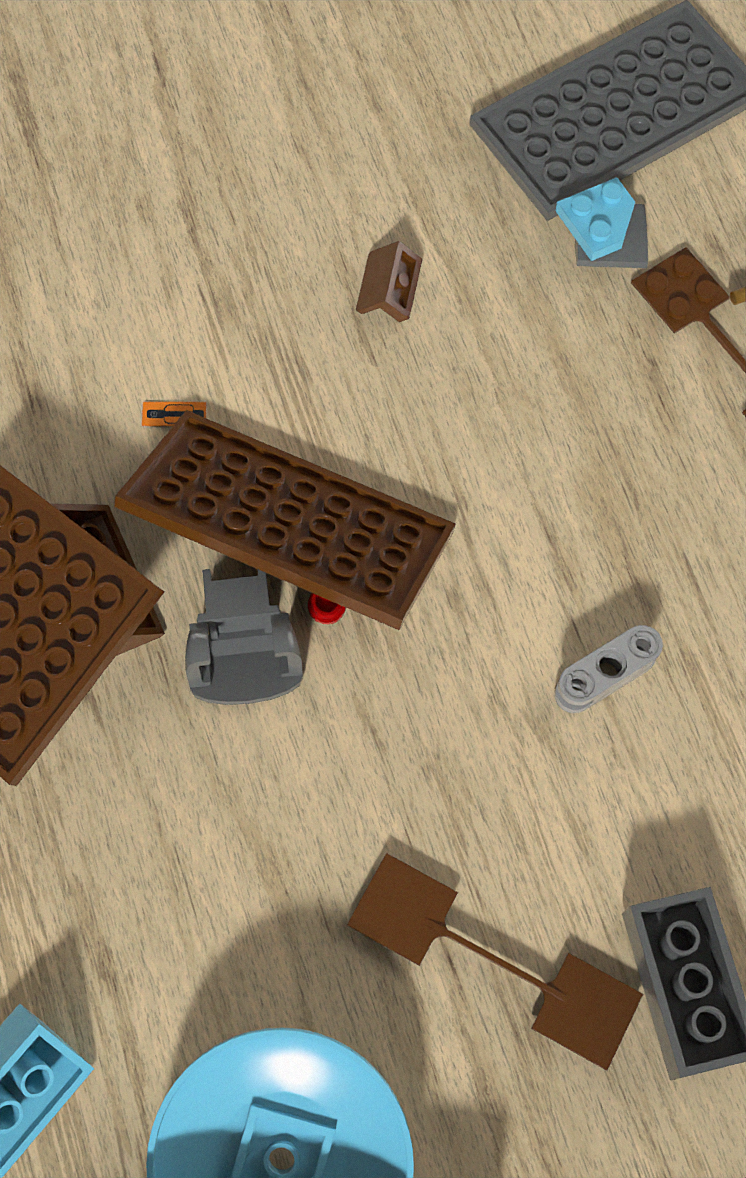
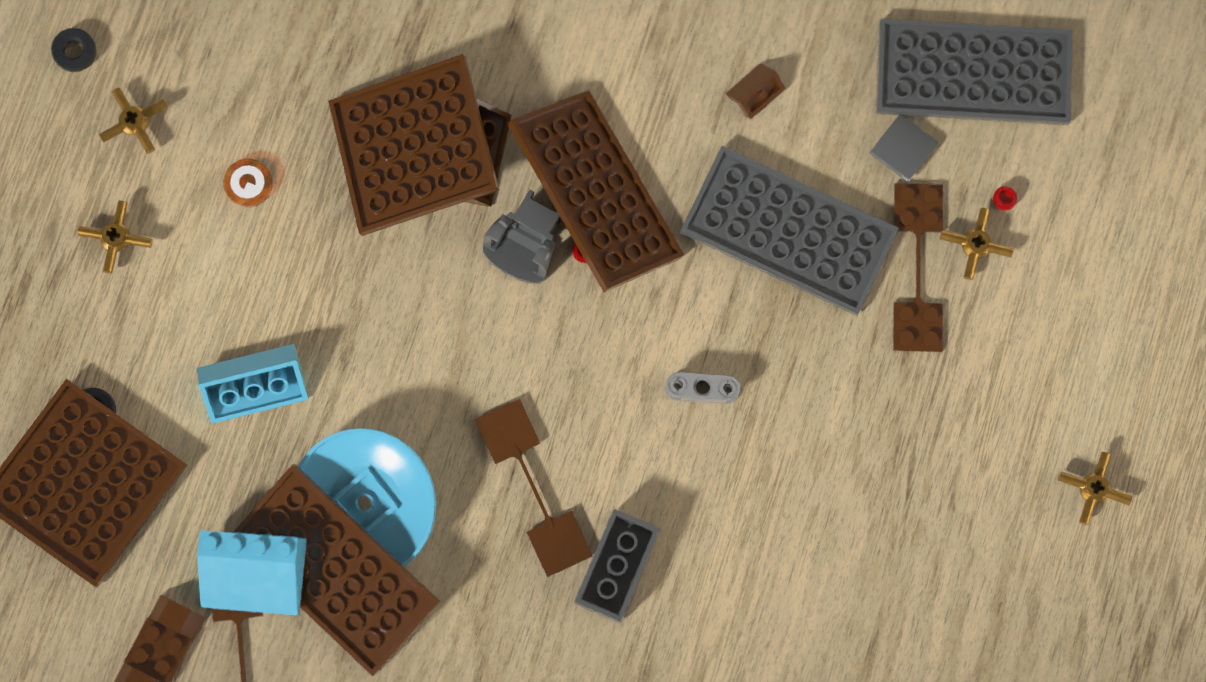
camera: 35 degrees right, 10 degrees up
(169, 412) = (581, 84): orange sticker -> none
(556, 412) = (789, 230): none -> dark grey plate
(598, 217) = (902, 134): medium azure plate -> none

